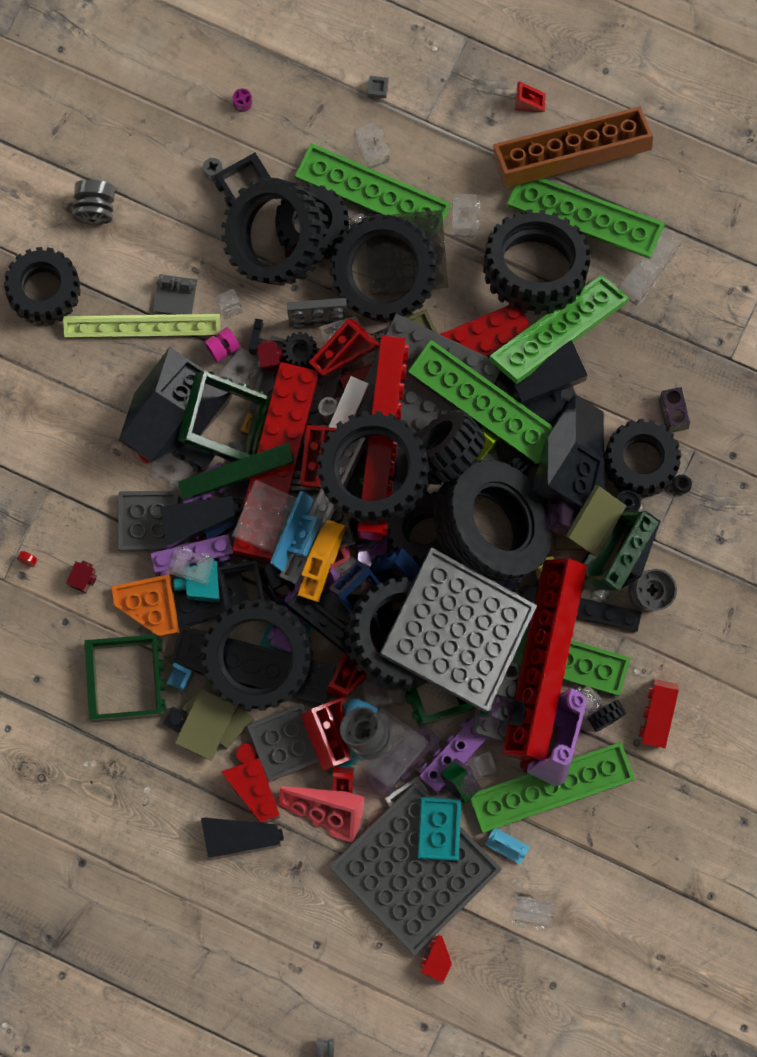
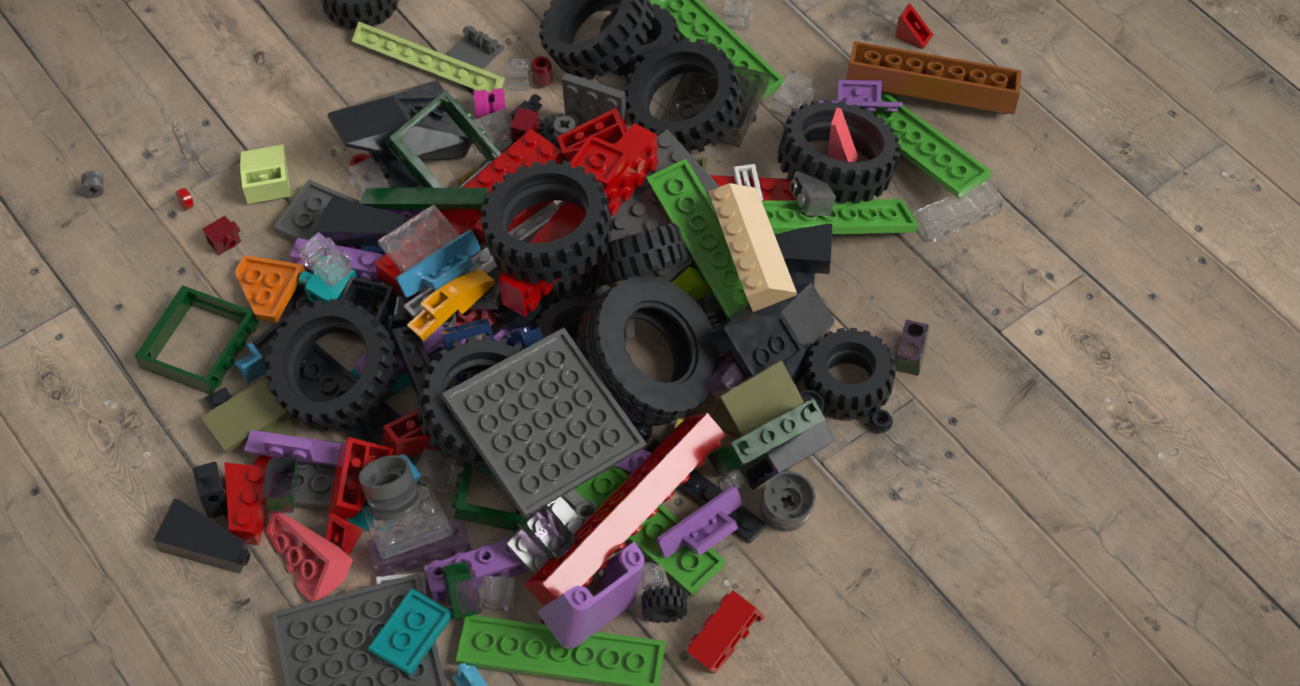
camera: 30 degrees right, 20 degrees down
(77, 501) = (264, 174): none -> yellowish green slope
(222, 795) = (211, 482): none -> black torso
(247, 288) = (541, 71): none -> dark red brick
(262, 732) = (293, 447): none -> medium lavender bracket
(271, 751) = (277, 469): none -> piece
(307, 353) = (562, 125): none -> dark grey wheel
(377, 389) = (601, 159): none -> red plate
(492, 343) = (744, 169): none -> white tile
(524, 195) = (863, 93): none -> medium lavender bracket
(528, 397) = (752, 245): none -> tan slope
(537, 261) = (840, 141): none -> coral wedge
(541, 318) = (812, 195): none -> flat silver slope
(605, 641) = (704, 526): none -> medium lavender bracket

